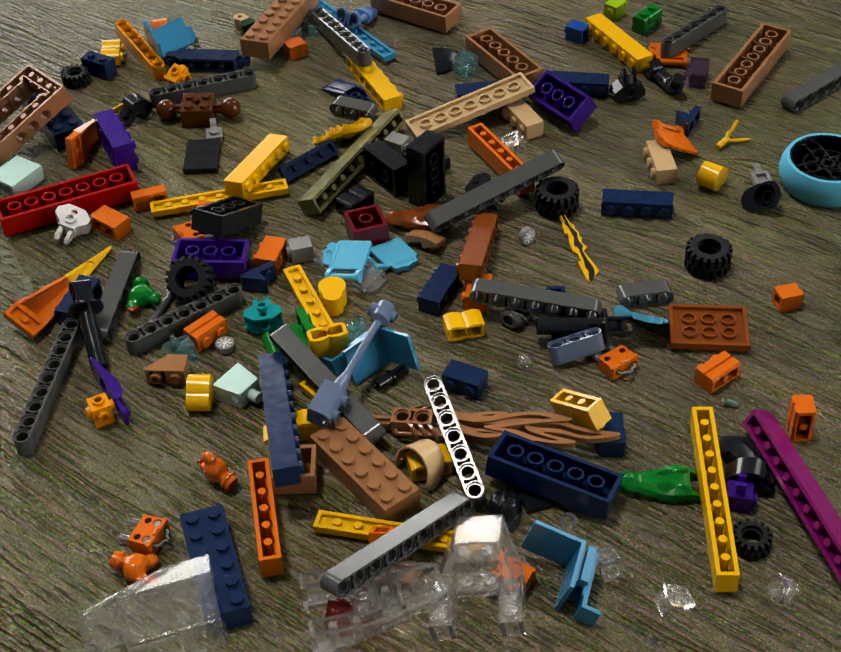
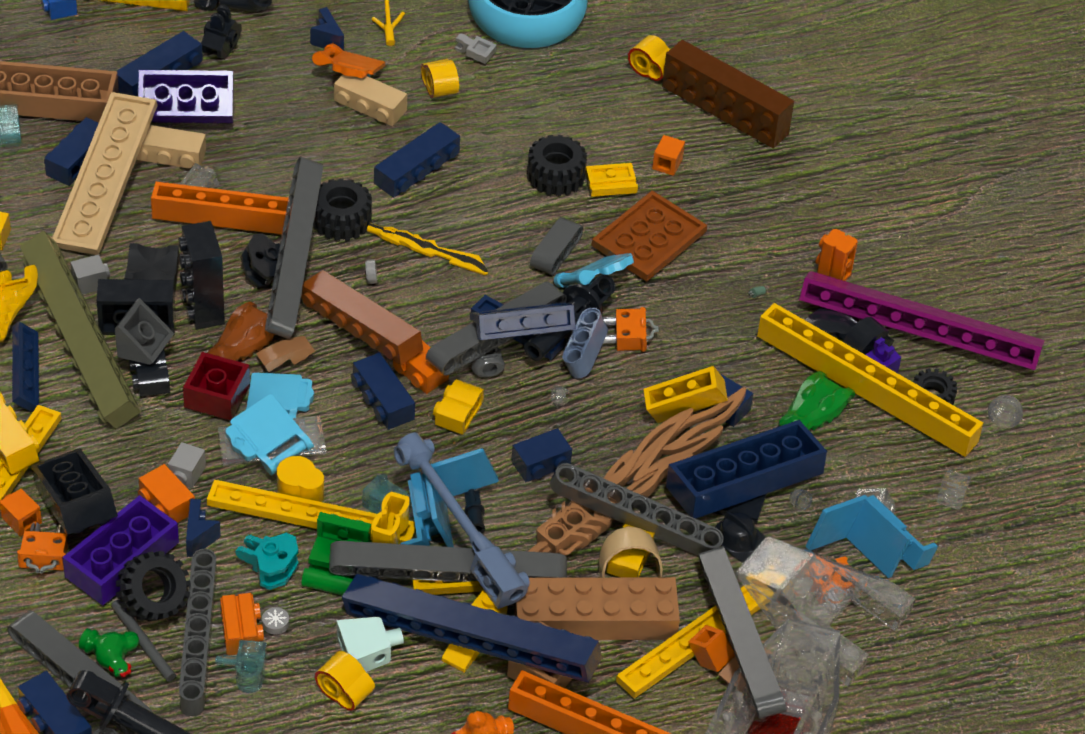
camera: 60 degrees left, 5 degrees up
(169, 370) = (277, 688): medium nougat slope -> none
(364, 175) = (141, 334): none -> dark grey slope
(544, 302) = (524, 320): none -> fence
(717, 371) = (716, 271): orange brick -> none
(732, 286) = (611, 179): none -> yellow plate
(761, 196) = (513, 68): black piece -> none

